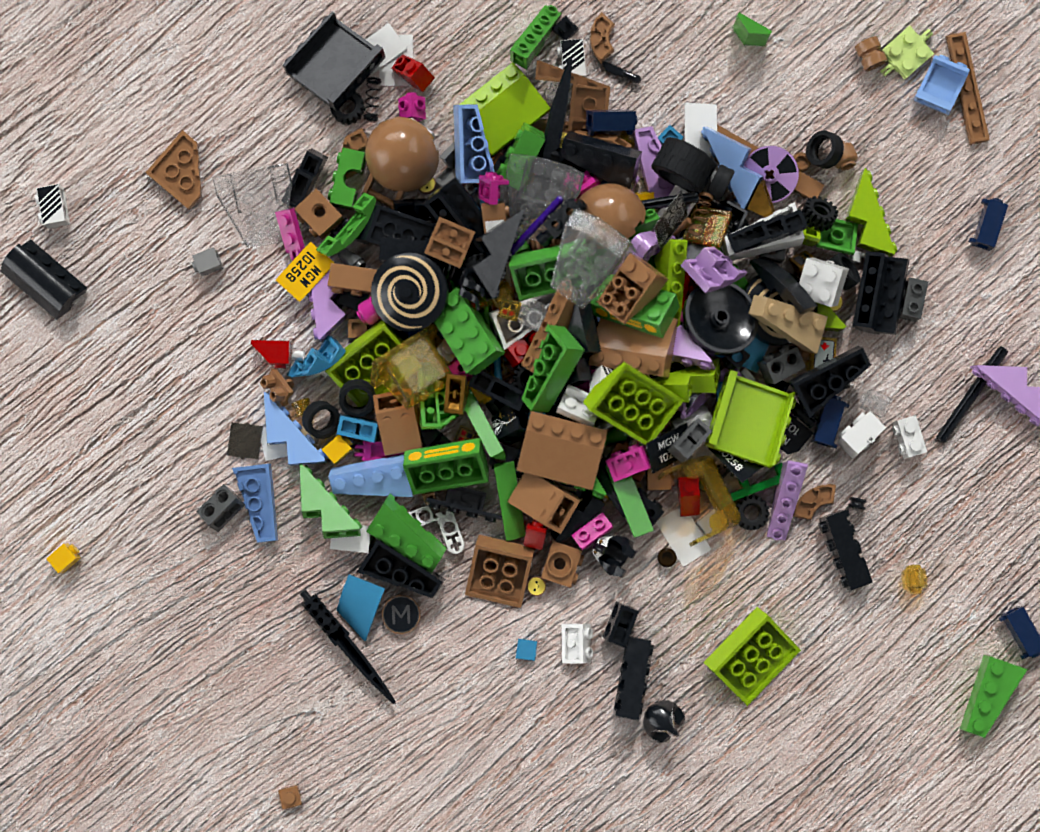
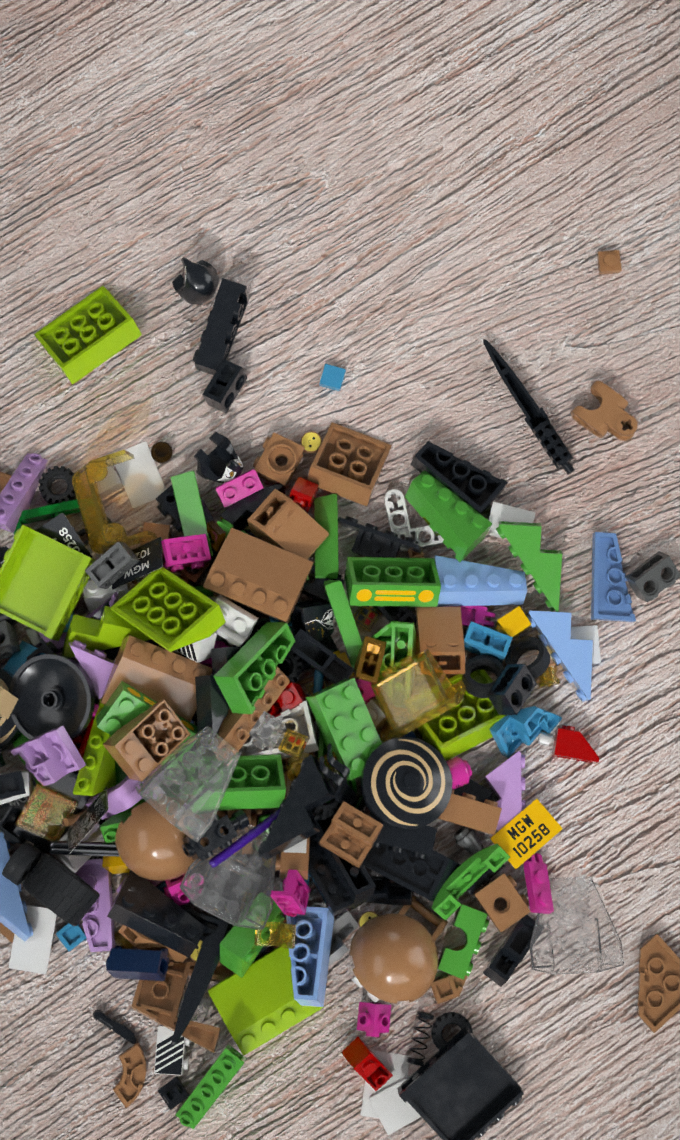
camera: 175 degrees left, 5 degrees down
(207, 262) = (640, 865): light grey brick -> none
(245, 440) = (618, 651): clear smoke piece -> none
(274, 650) = (609, 416): none -> medium nougat piece
(280, 388) = (571, 705): medium nougat hips -> none
(331, 386) = (512, 689): none -> black brick
(356, 328) = (475, 758): medium nougat plate -> none
(360, 604) = (508, 449): dark azure slope -> none
(401, 614) = (464, 434): black tile -> none
(497, 155) = (280, 935): none -> clear yellow bracket
(576, 643) = (276, 374): white bracket -> none
(604, 483) = (217, 535): none -> dark brown tile
(688, 496) = (126, 512): red slope -> none
(703, 201) = (62, 807): medium nougat piece -> none

